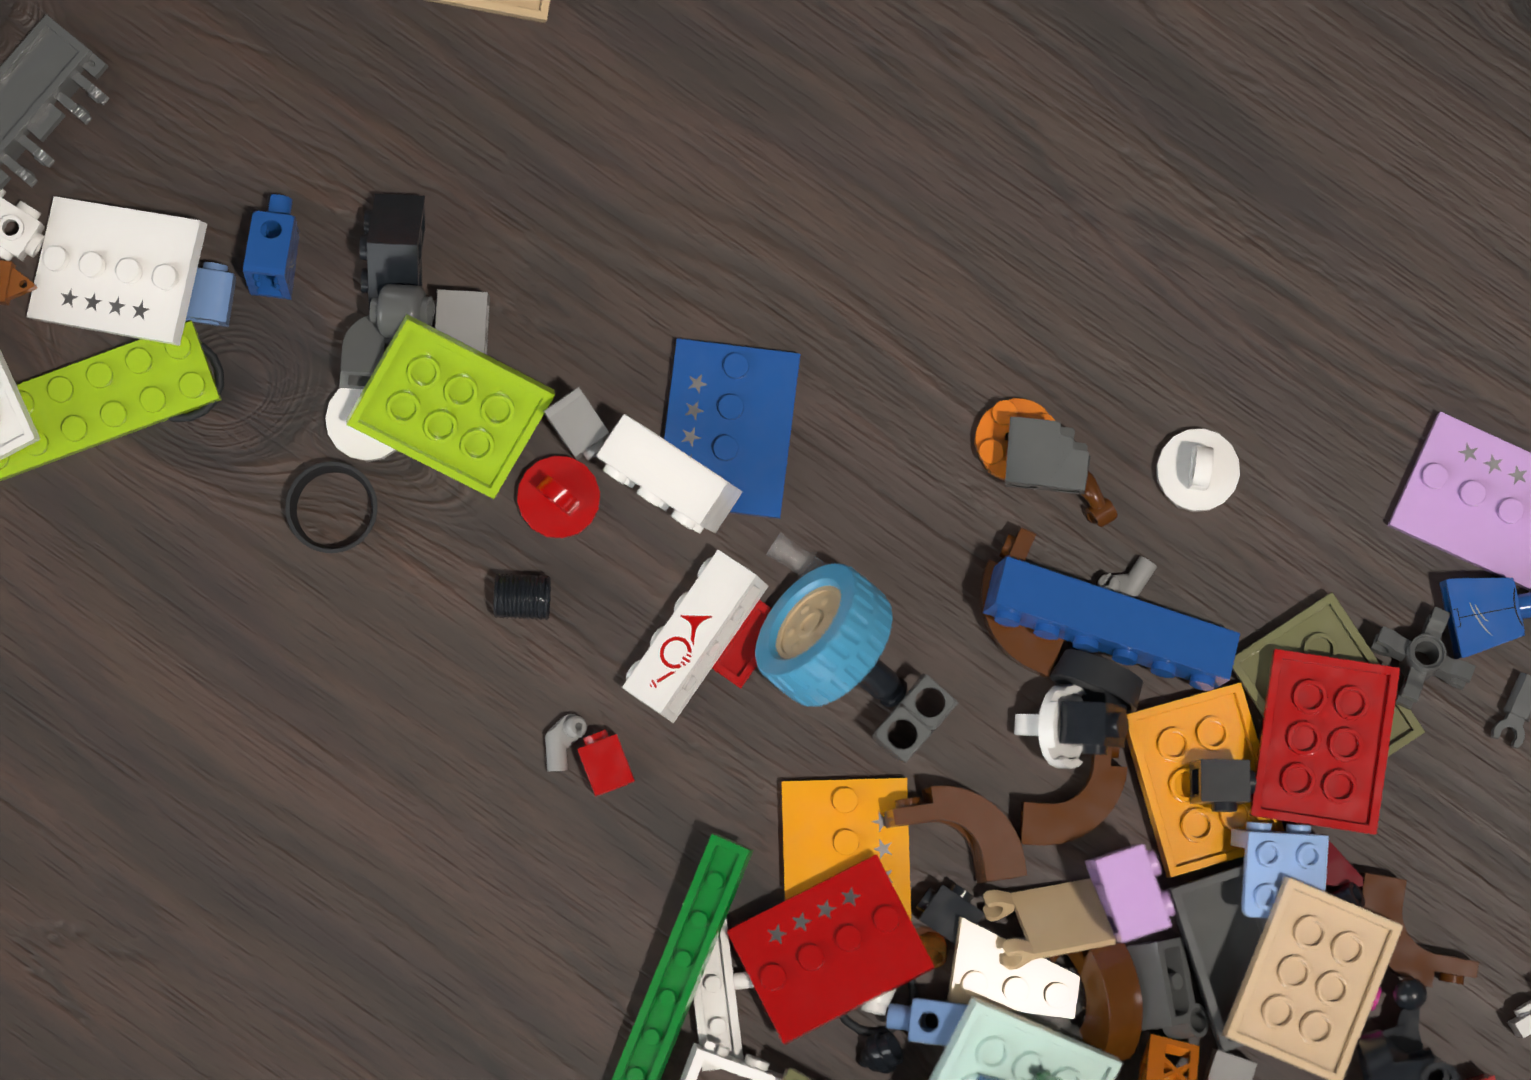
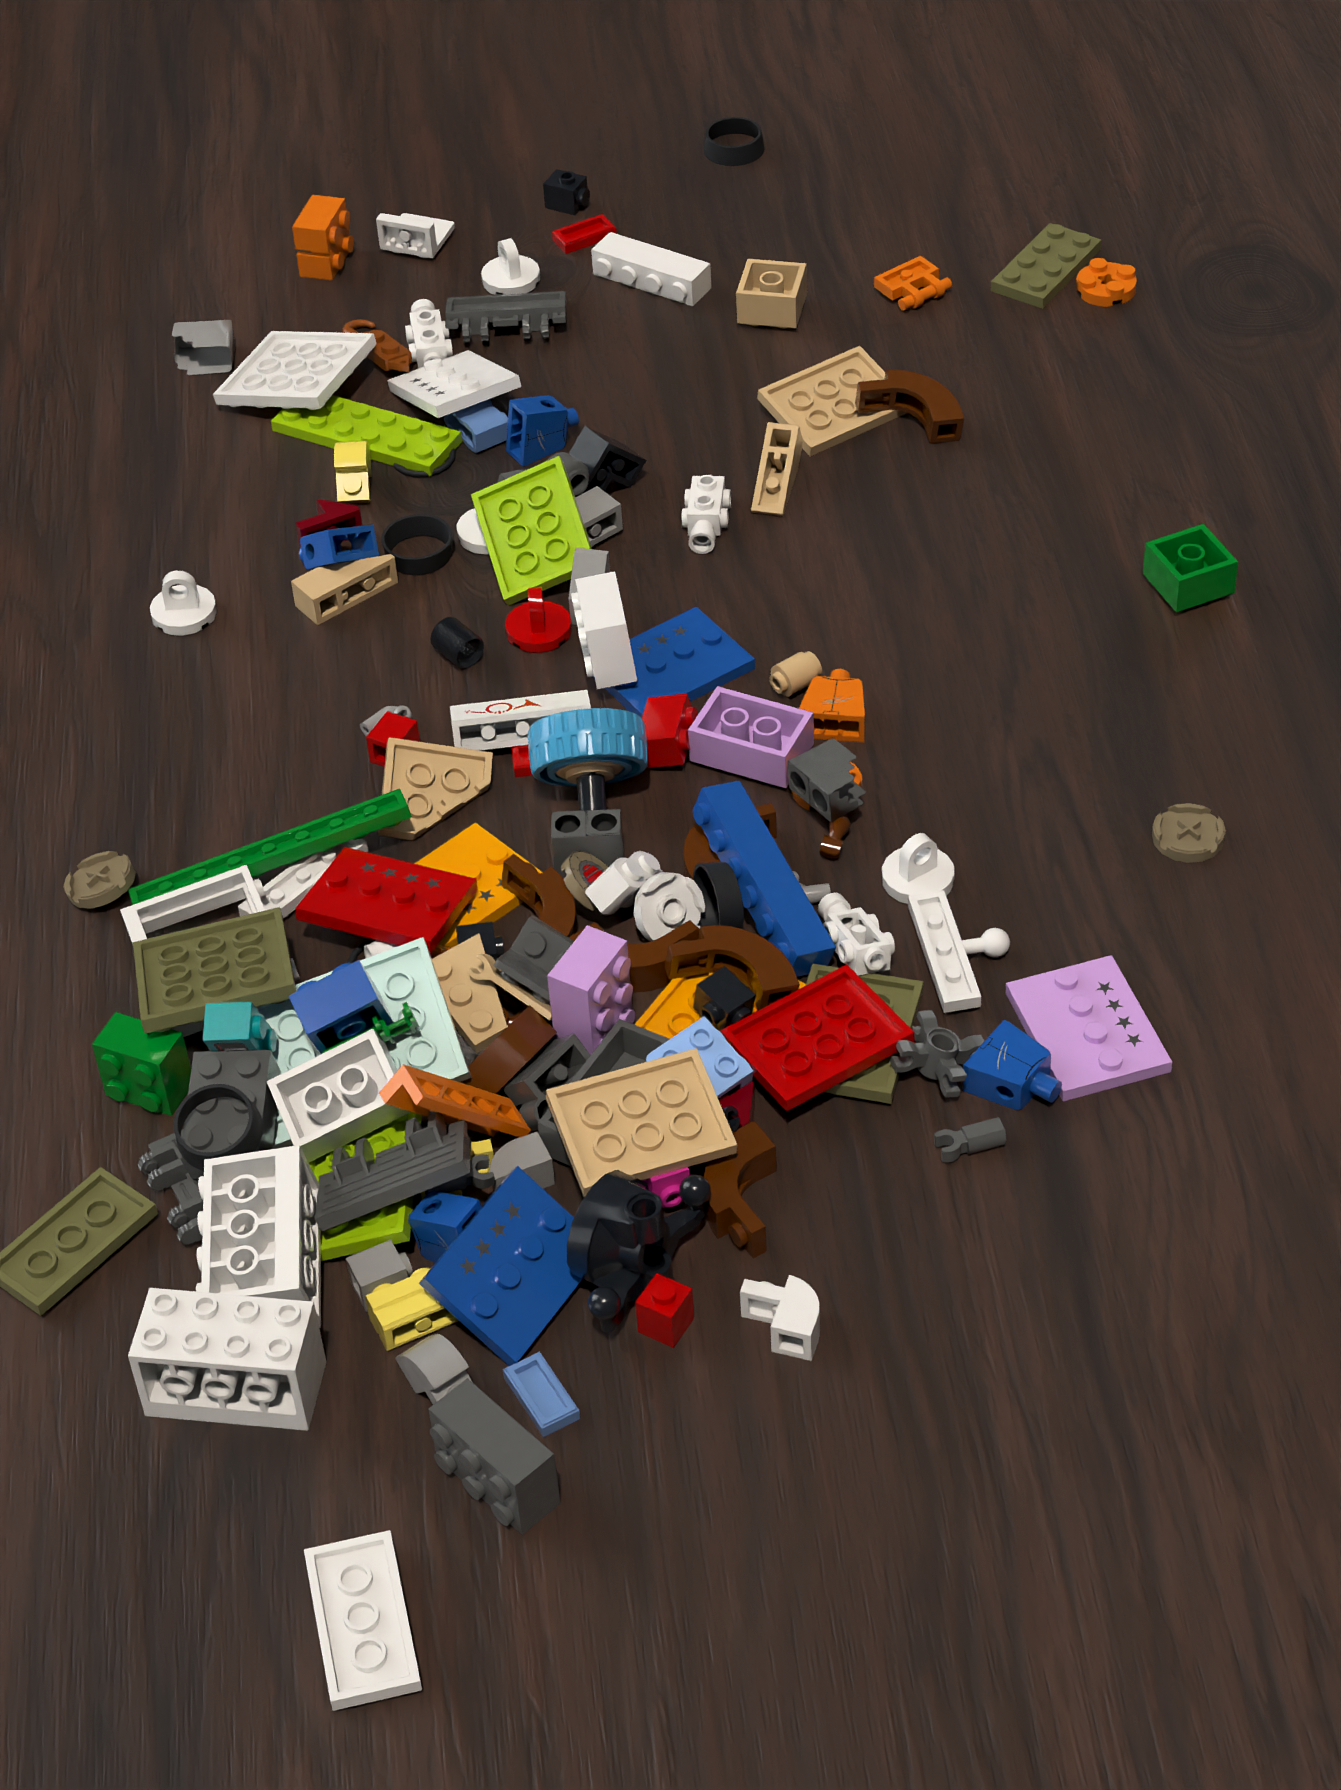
camera: 55 degrees right, 40 degrees down
(158, 477) = (353, 471): none -> light yellow brick
(211, 796) = (182, 607): none -> white tile
(226, 557) = (330, 516): none -> dark red slope
(285, 600) = (325, 546): none -> blue torso
(327, 642) = (342, 585): none -> tan slope
(538, 195) = (706, 511): none -> white brick
(557, 88) = (777, 468): none -> tan slope
(698, 780) = (433, 782): none -> tan plate
(832, 522) = (667, 729): none -> red brick
(858, 340) = (795, 673): none -> tan brick
(915, 462) = (750, 736): none -> lavender brick
(935, 347) = (836, 707): none -> orange torso
(968, 757) = (581, 871): none -> dark tan tile
(1004, 739) = (622, 881): none -> white brick
(1046, 899) = (533, 957): none -> dark grey bracket
(1093, 726) = (684, 905): black brick -> none
(1212, 717) = (744, 953): none -> reddish brown arch
(1247, 598) = (856, 935): none -> white brick
(1310, 535) = (948, 953): none -> white plate
(1362, 203) = (1188, 833): none -> dark tan tile

